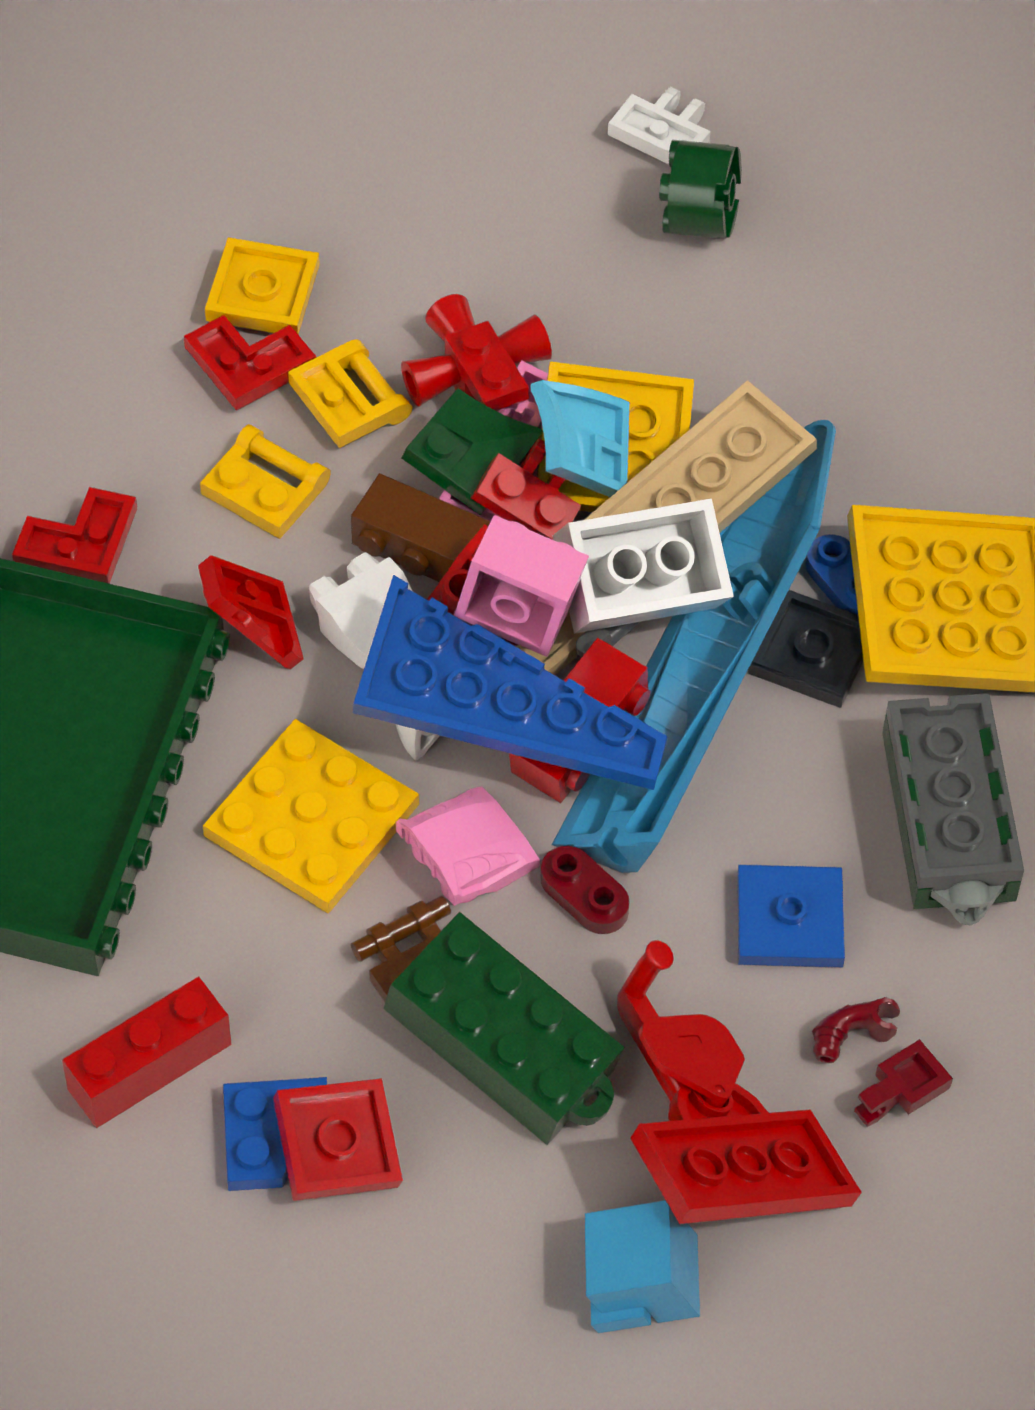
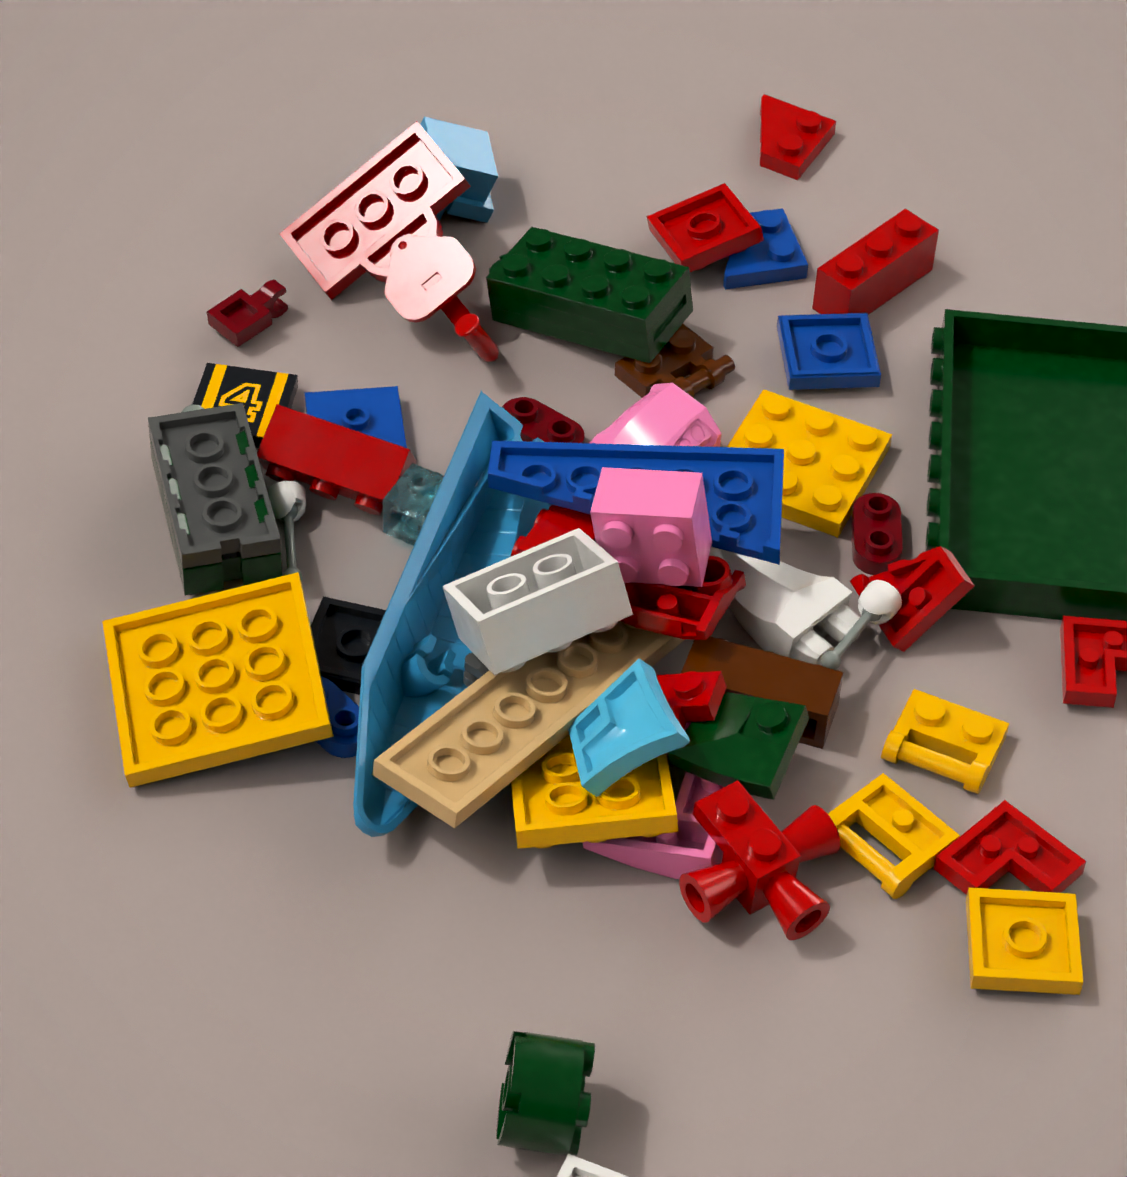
camera: 170 degrees right, 10 degrees down
(177, 1325) = (791, 136): none -> red wing
(239, 949) = (828, 351): none -> blue plate
(256, 711) = (876, 533): none -> dark red plate
(294, 588) = (877, 606): none -> hinge
(736, 770) = (409, 503): none -> clear light blue brick
(819, 833) = (332, 458): none -> red brick
(834, 1028) = (286, 356): dark red piece -> none
(874, 812) = (288, 505): none -> white hinge
(915, 959) = (254, 388): none -> black tile

